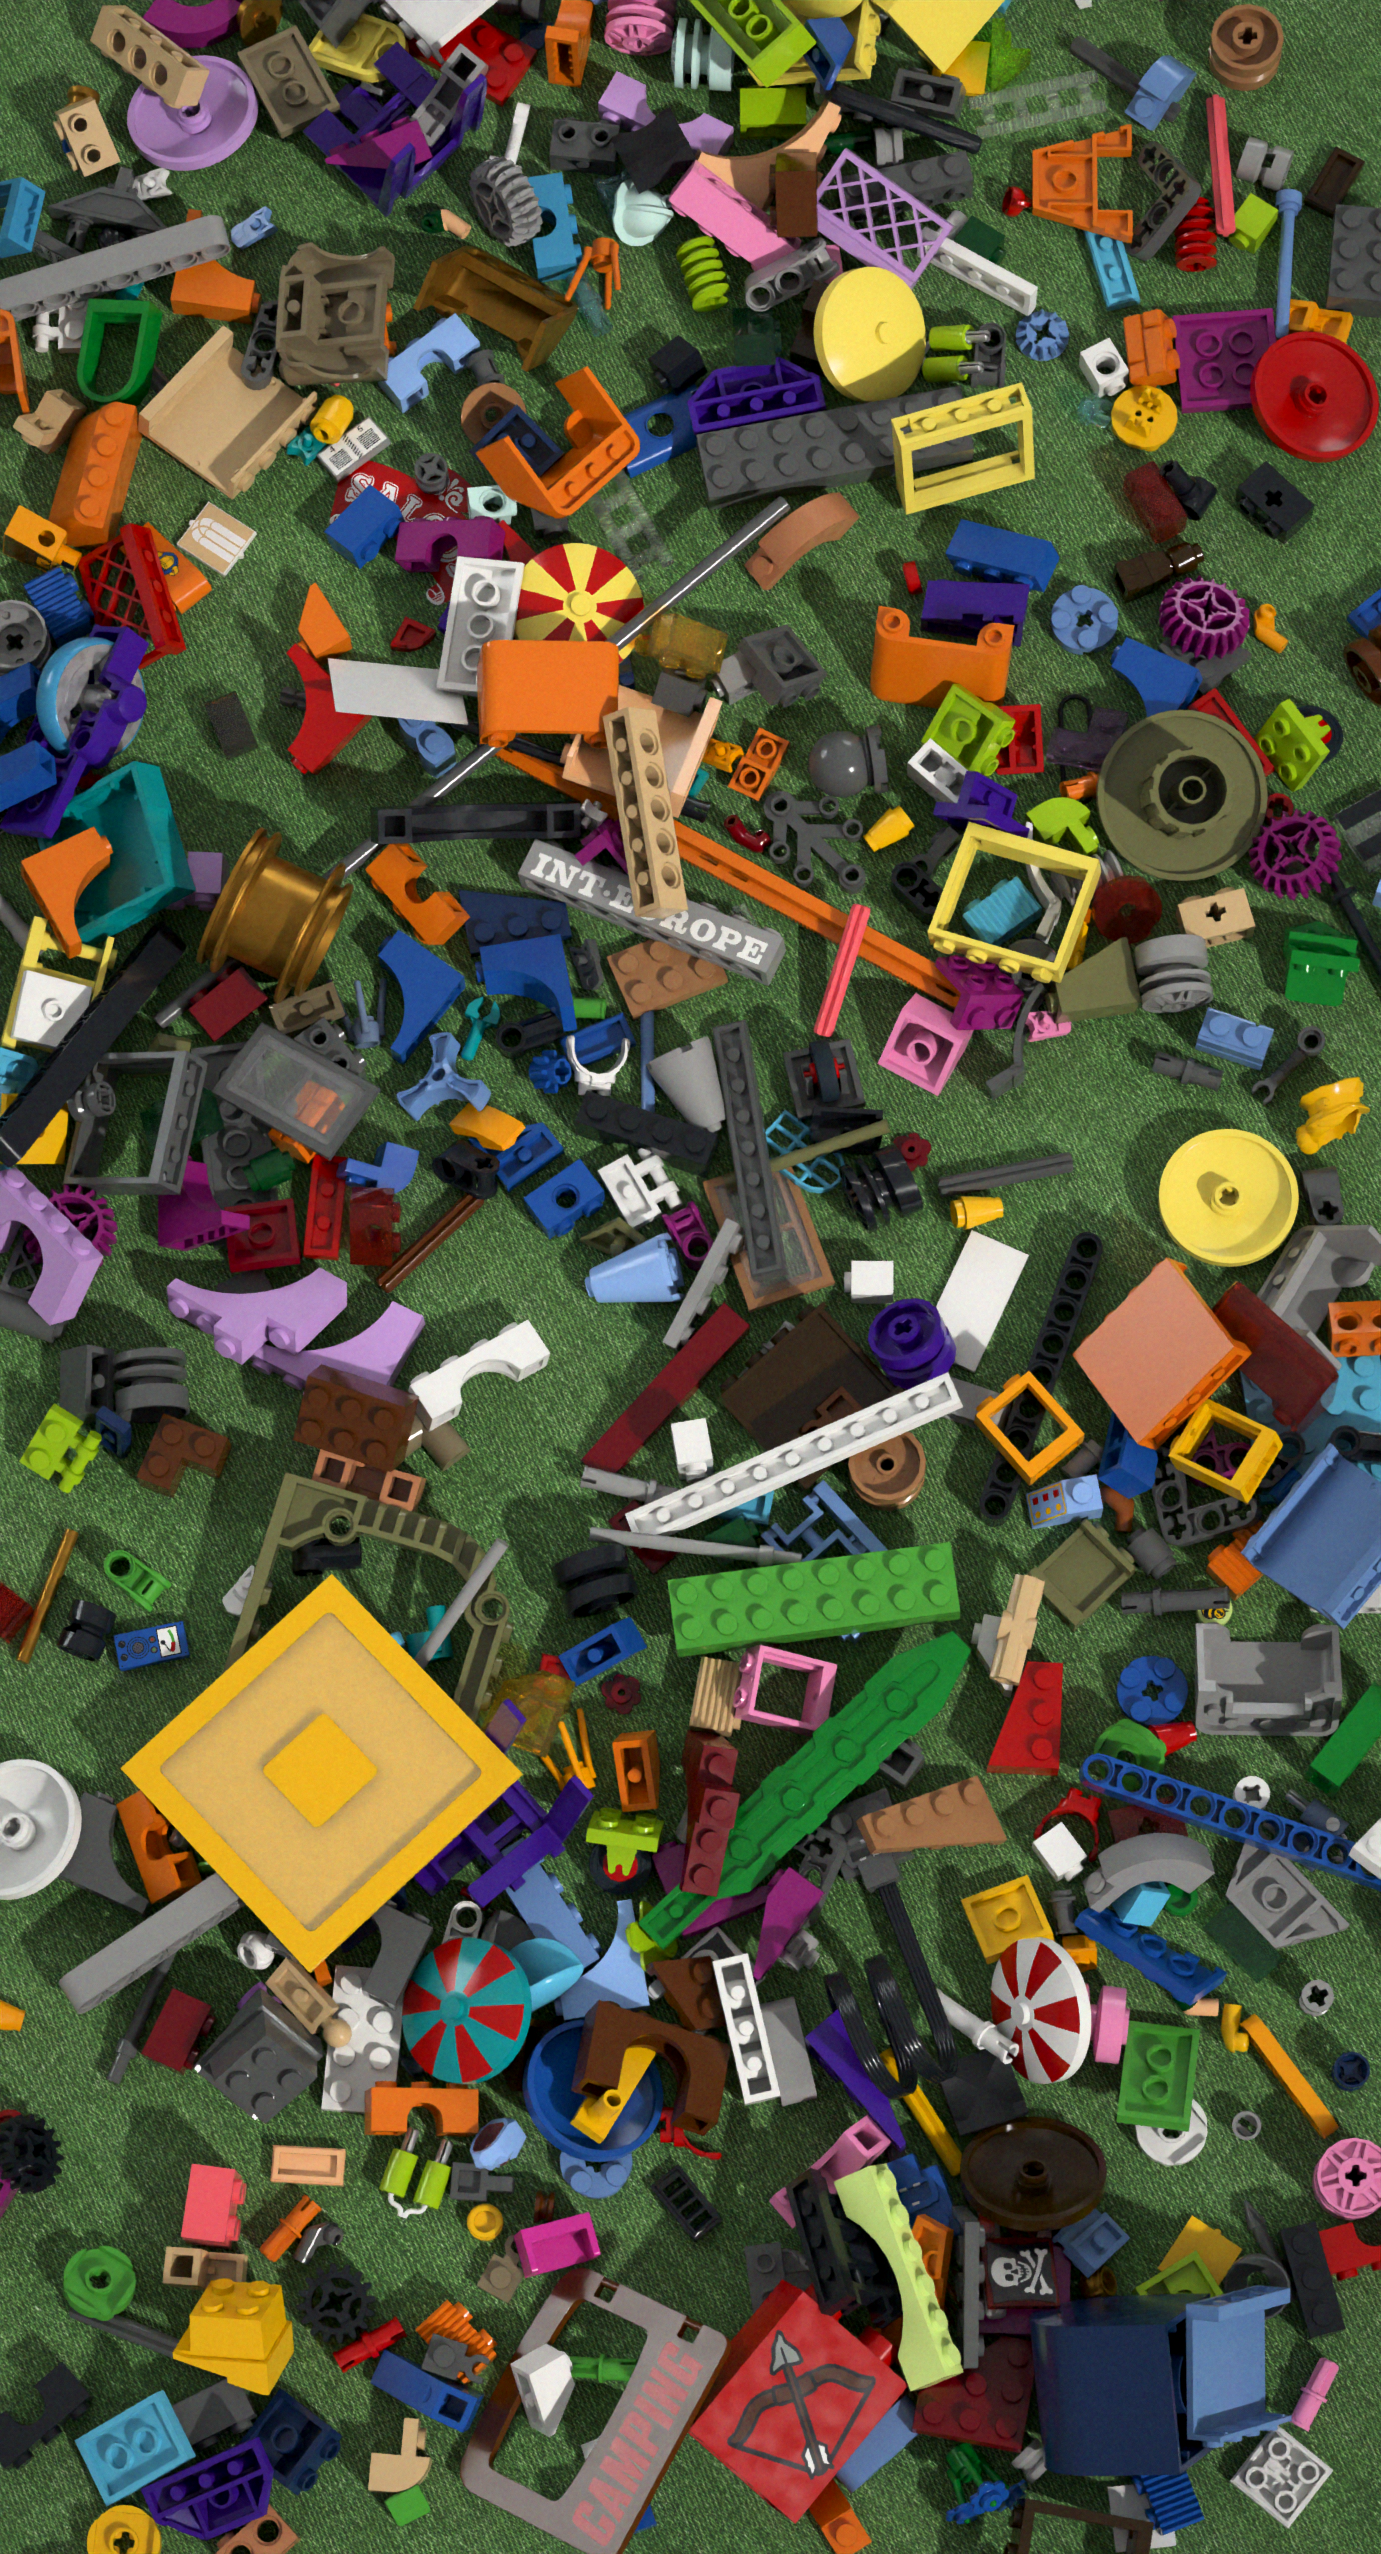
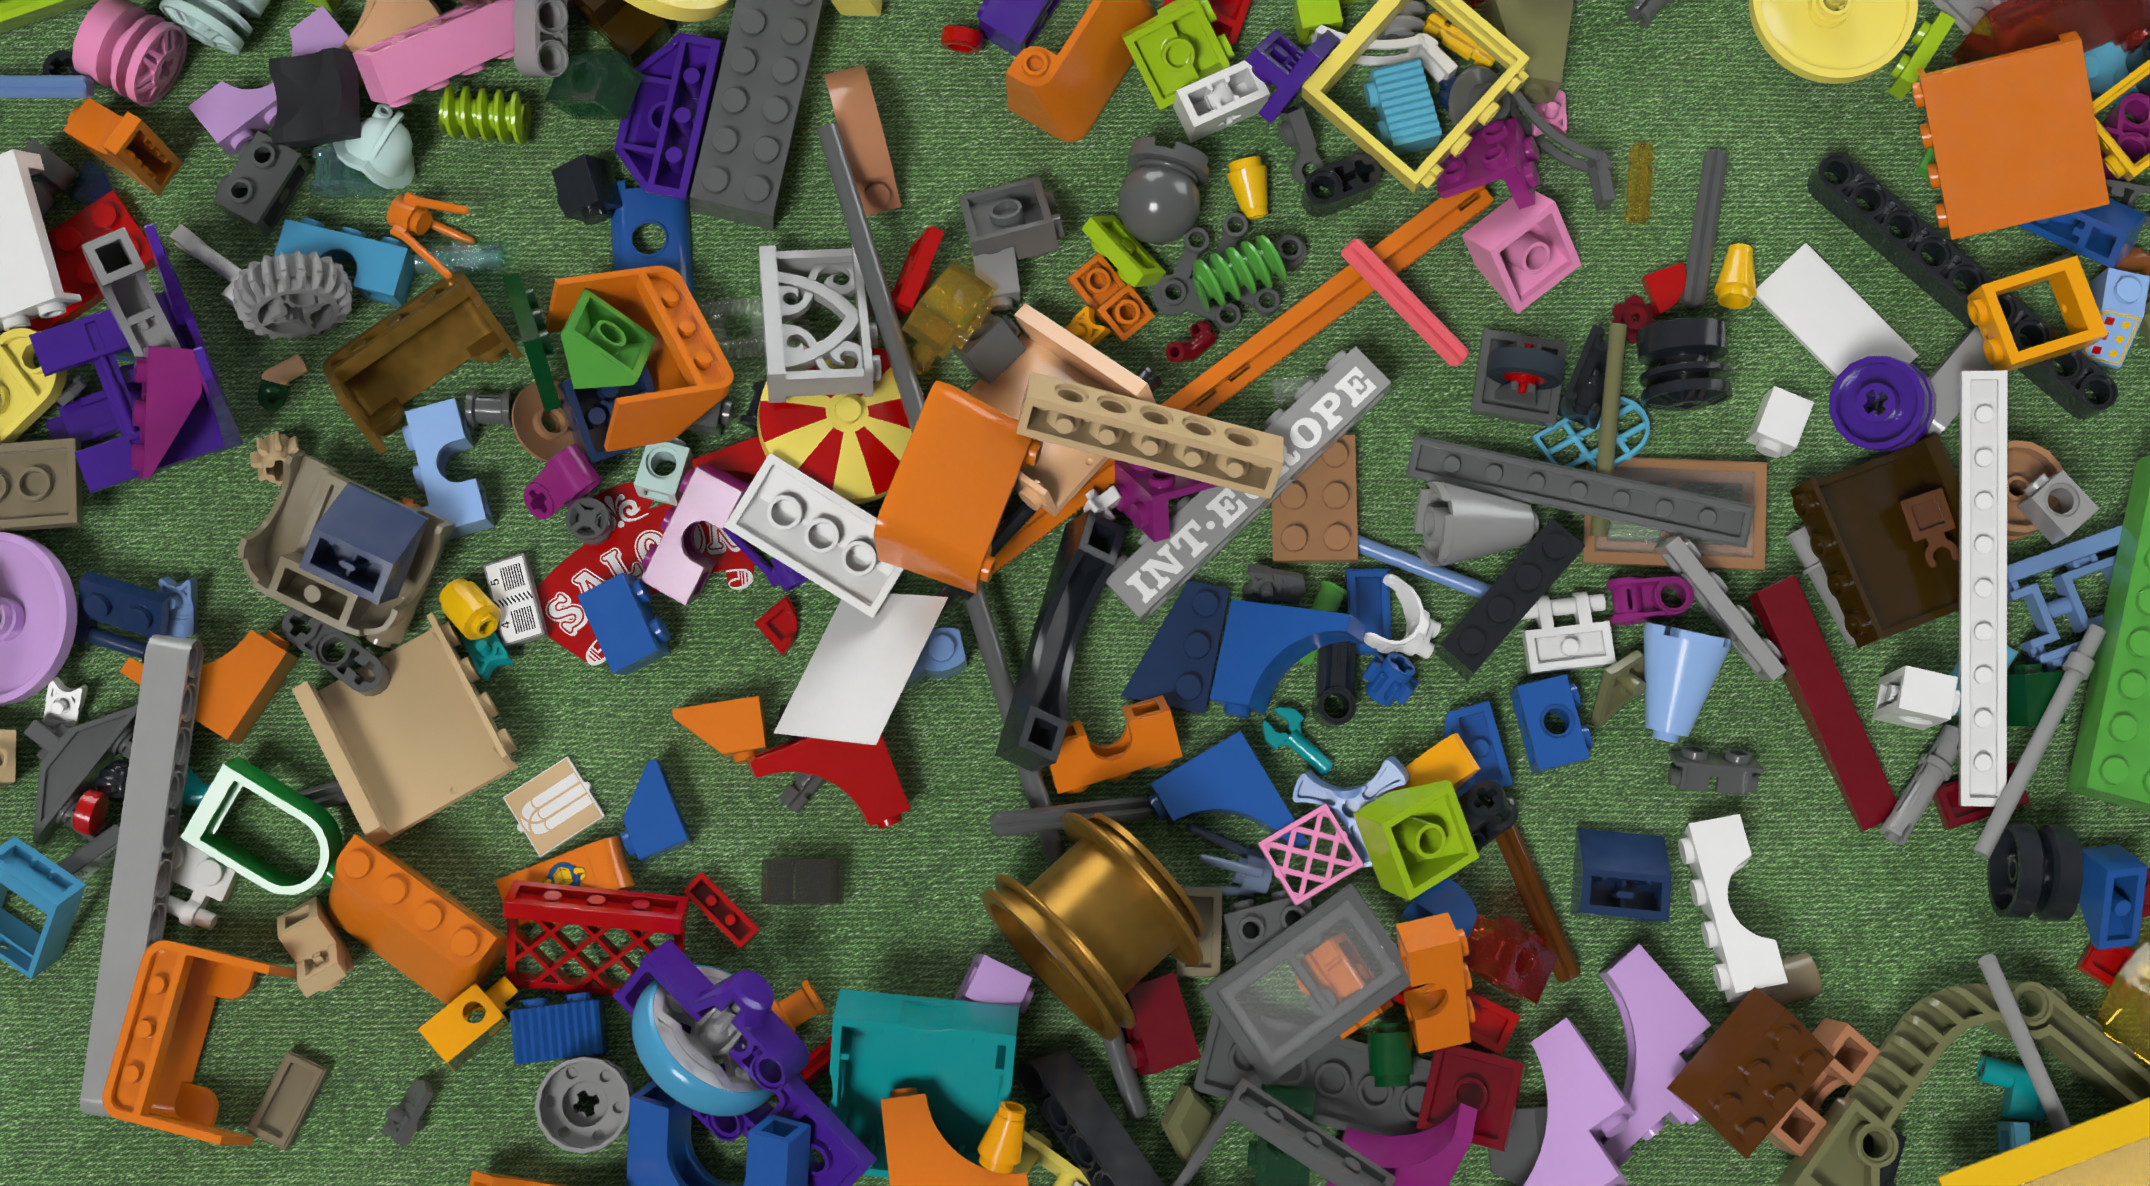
camera: 75 degrees left, 5 degrees up
(82, 233) = (90, 812): none -> red tile
(98, 916) = (1003, 1140): none -> light orange cone
(135, 752) = (799, 1006): none -> orange bush
(188, 681) = (722, 910): none -> red piece
(235, 190) = (120, 606): none -> dark blue plate
(236, 606) = (654, 817): none -> blue slope
(339, 323) = (364, 544): none -> dark blue slope
(347, 1155) = (1433, 956): none -> orange arch
(360, 898) = (1050, 817): none -> dark grey axle
(376, 1076) = (1339, 837): none -> bright pink window
(390, 238) = (271, 456): none -> tan gear
(433, 1122) = (1416, 837): none -> lime slope
(448, 438) = (561, 483): none -> magenta piece
(470, 1289) = (1620, 876): none -> dark blue slope
(544, 371) = (534, 338): none -> dark green wing
(555, 418) = (603, 345): none -> bright green slope
(578, 1317) = (1731, 770): none -> dark grey hinge
(595, 544) = (786, 365): none -> light grey fence
(712, 613) = (915, 271): none -> red plate
(792, 759) = (1123, 250): none -> lime plate
(810, 841) = (1237, 271): none -> bright green piece
(876, 1500) = (2075, 506): none -> light grey brick
(944, 1163) = (1665, 287): none -> red tile
(1020, 1113) = (1639, 183): none -> clear yellow axle
(1214, 1283) = (1927, 41): none -> lime plate

